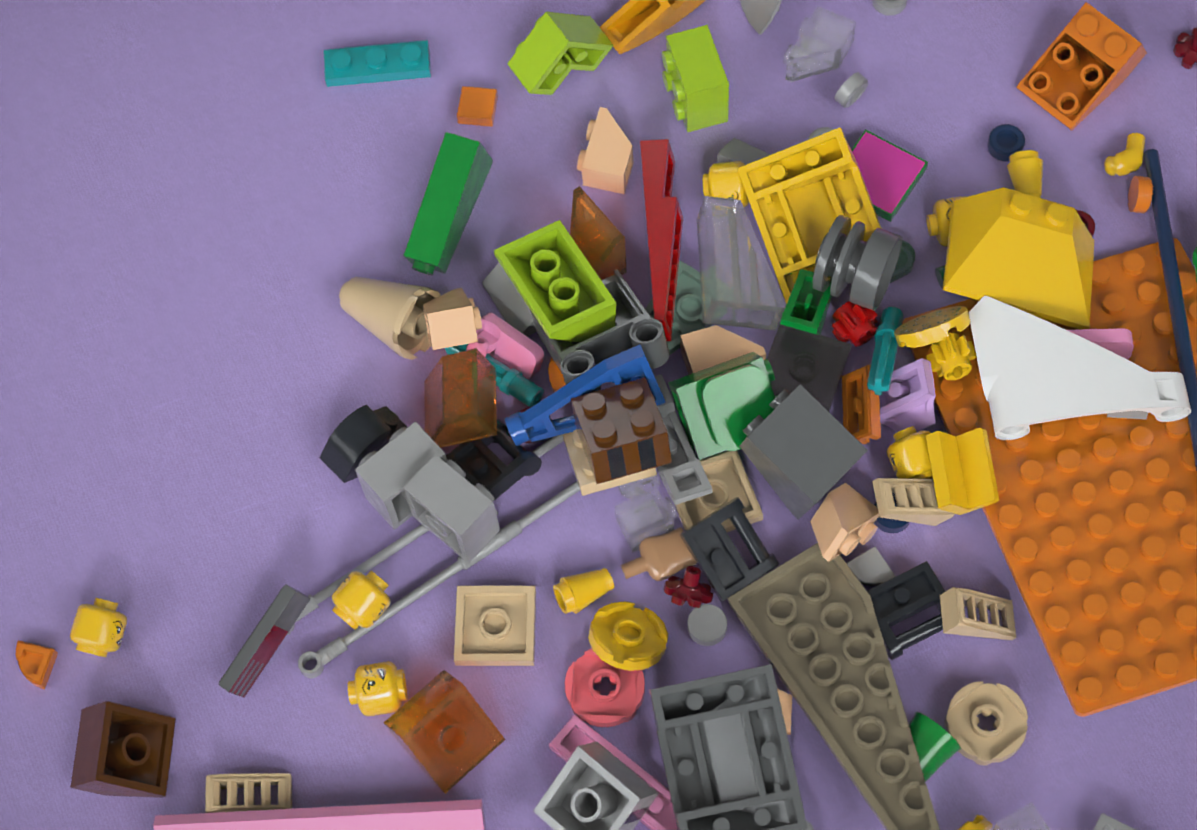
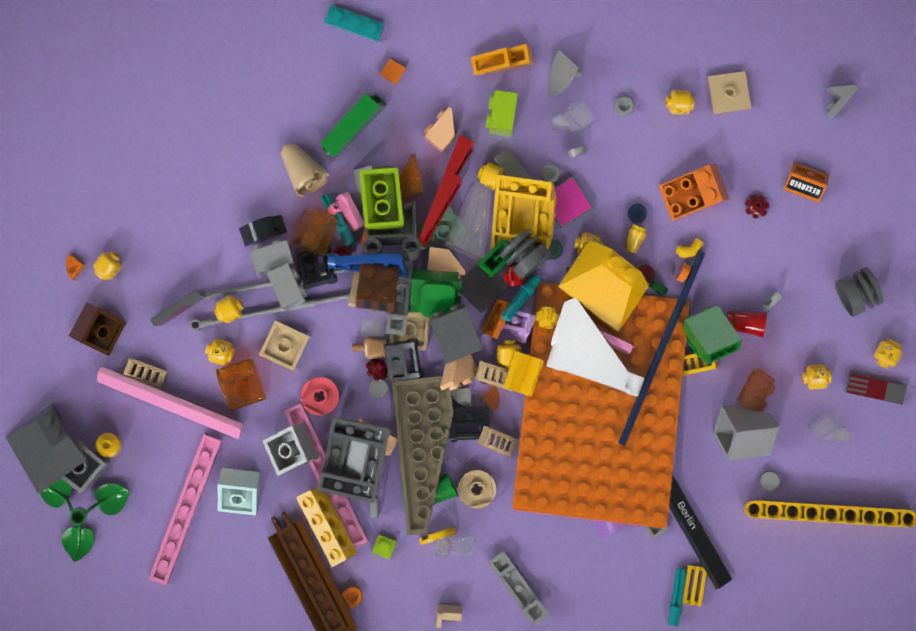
camera: 15 degrees right, 20 degrees up
(452, 320) = (327, 190): light nougat slope -> none
(555, 48) = (444, 63): lime brick -> none
(582, 589) = (330, 347): yellow cone -> none
(628, 636) = (340, 379): yellow tile -> none
(925, 548) = (492, 398): none -> clear orange tile
(932, 327) = (545, 299): yellow tile -> none
(1112, 235) = (658, 288): none -> dark green tile

